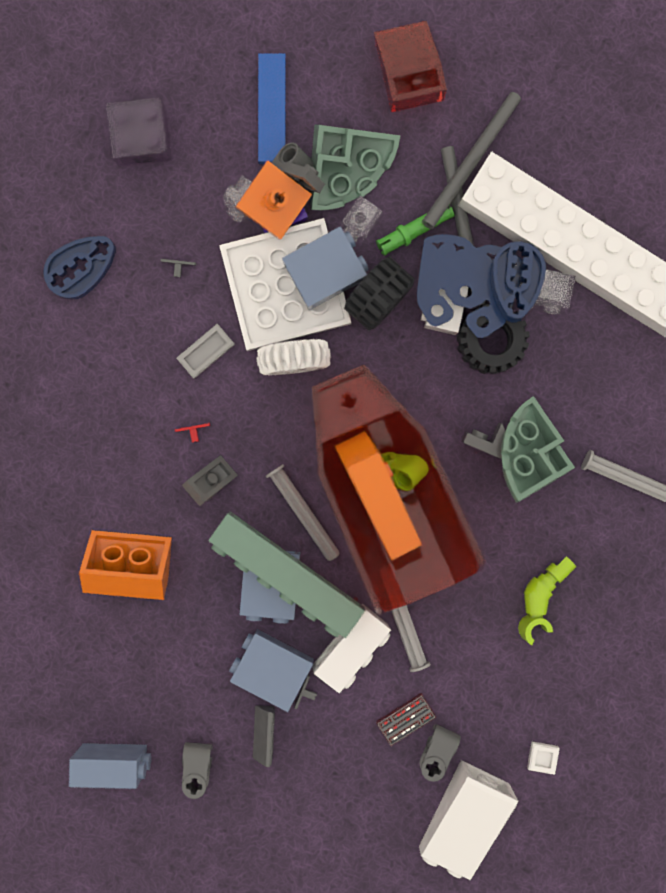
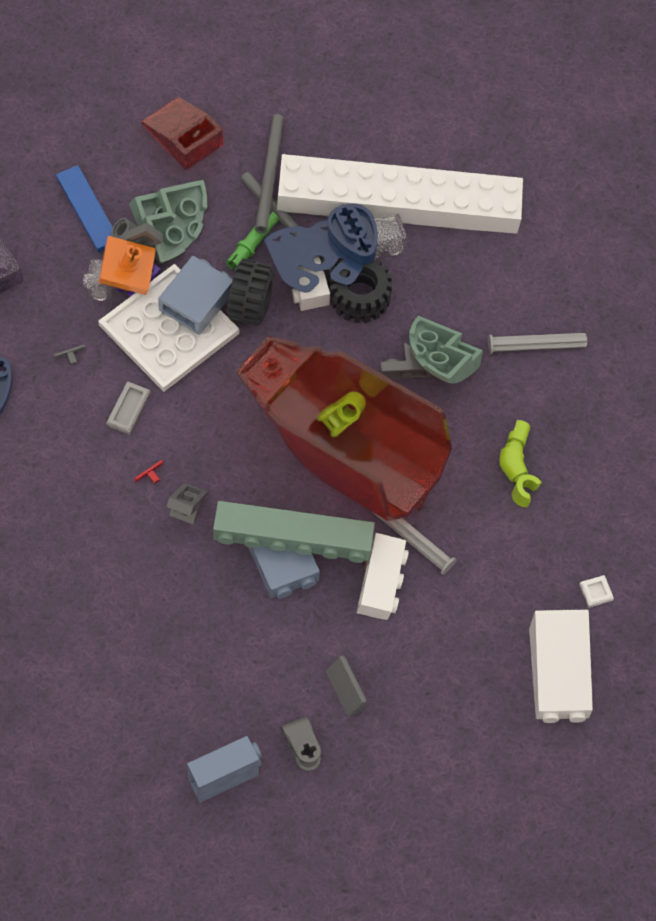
camera: 30 degrees left, 25 degrees down
(126, 565) = (151, 604): orange slope -> none
(271, 669) = (322, 627): sand blue brick -> none
(293, 357) = (206, 370): white gear -> none
(304, 513) = (278, 490): light grey axle -> none
(305, 692) = (363, 637): dark grey piece -> none
(361, 219) = (206, 247): clear brick -> none
(378, 494) = (334, 423): orange brick -> none
(406, 719) = (462, 616): tile -> none
(439, 748) = (504, 624): dark grey piece -> none

